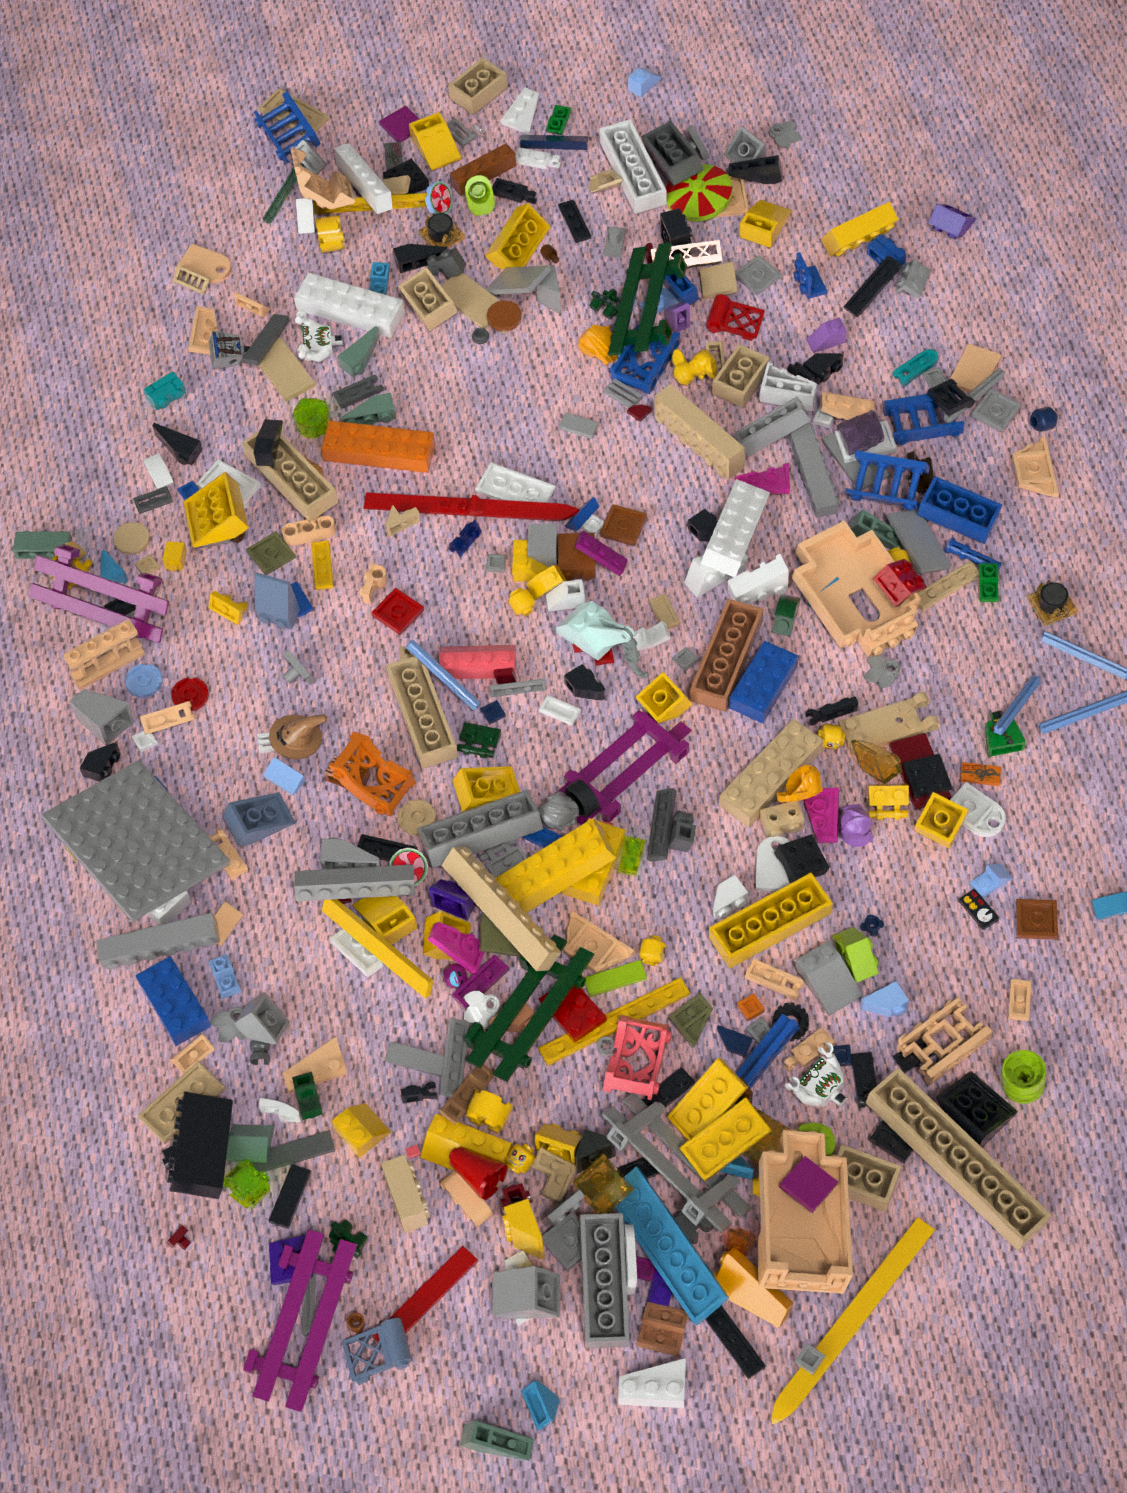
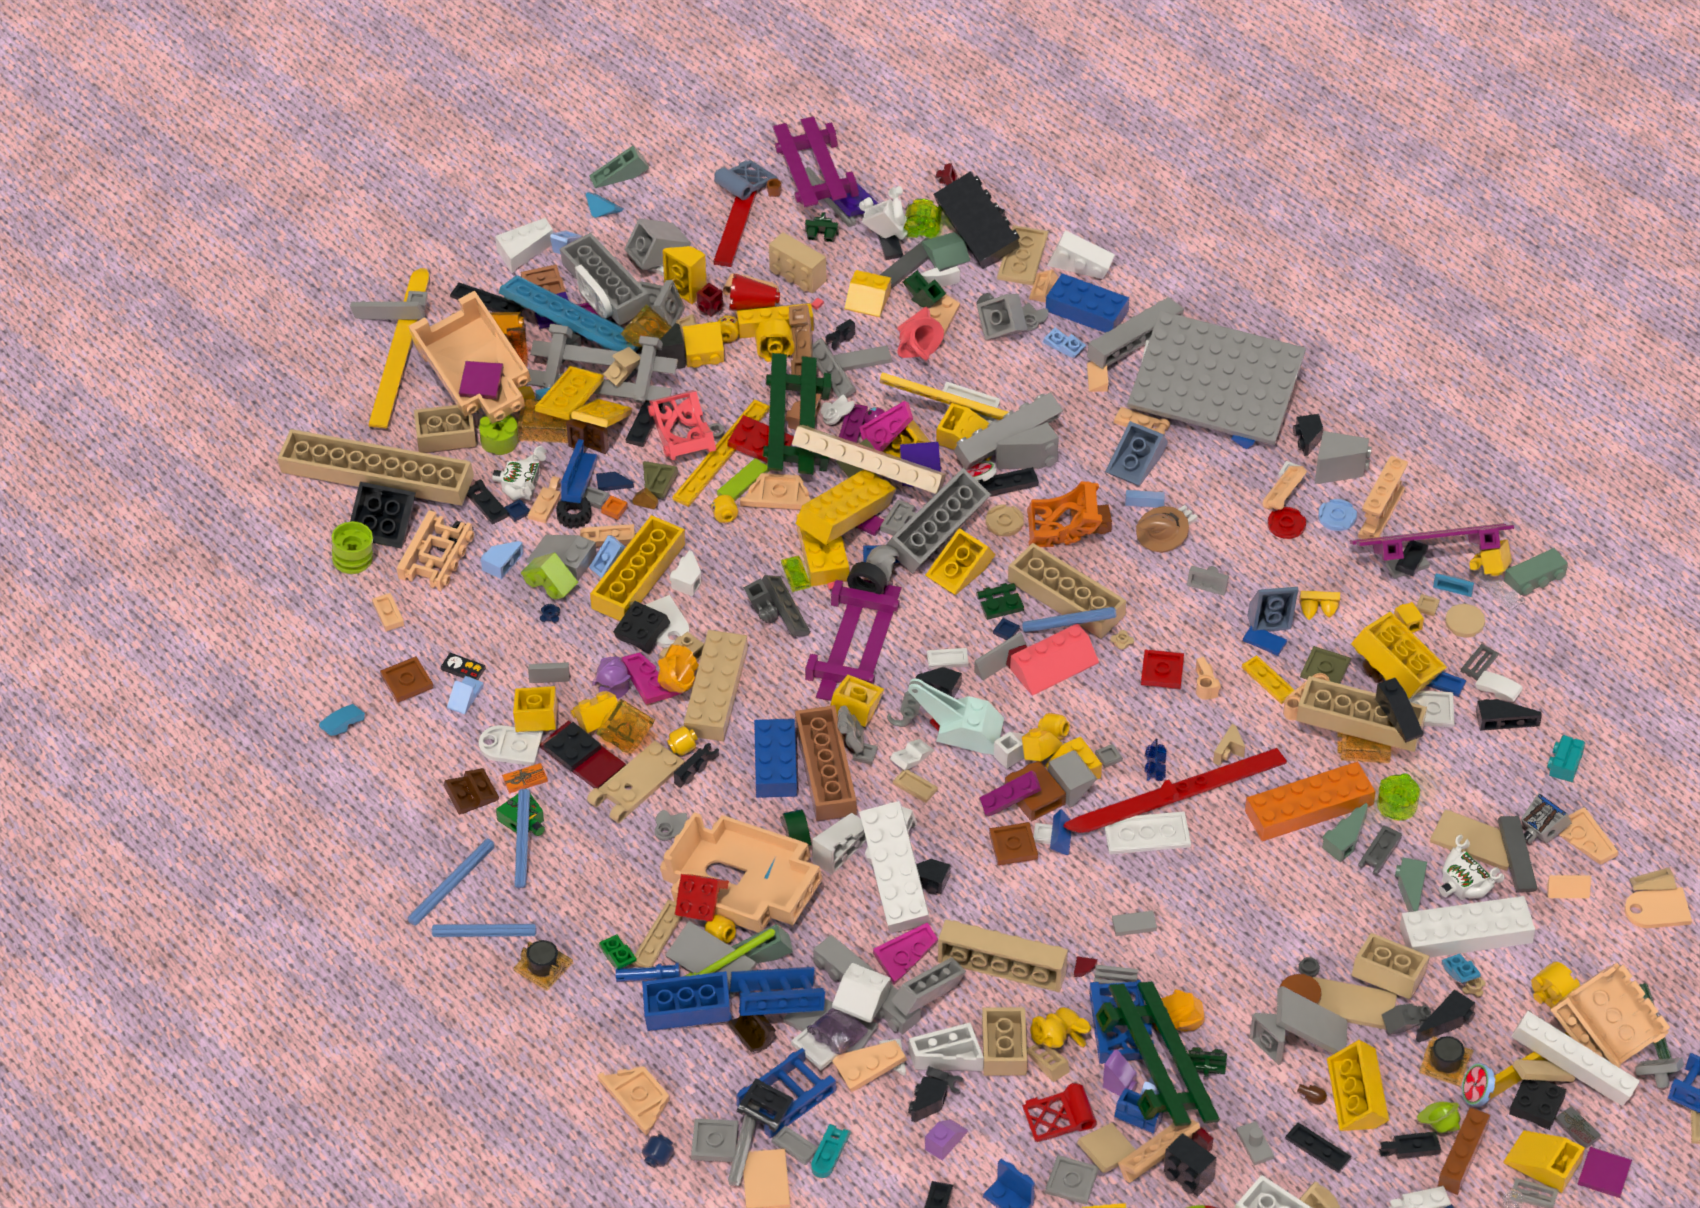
camera: 145 degrees right, 10 degrees down
(138, 1057) = (1080, 256): none -> white wedge
(287, 1194) = (886, 217): none -> white torso
(352, 1045) = (920, 335): none -> coral helmet
(609, 1366) = (561, 239): none -> light blue slope
(656, 1140) = (623, 366): none -> tan slope
(688, 667) = (850, 725): none -> light grey plate
(717, 1000) = (645, 499): none -> pearl gold tile
(788, 949) = (606, 555): none -> light blue slope
(826, 442) = (861, 992): none -> white slope
(846, 1364) = (387, 310): none -> light grey tile
(906, 862) = (548, 672): none -> light grey panel
(941, 533) = (736, 953): none -> lime piece
(1033, 784) = (480, 791): none -> reddish brown slope

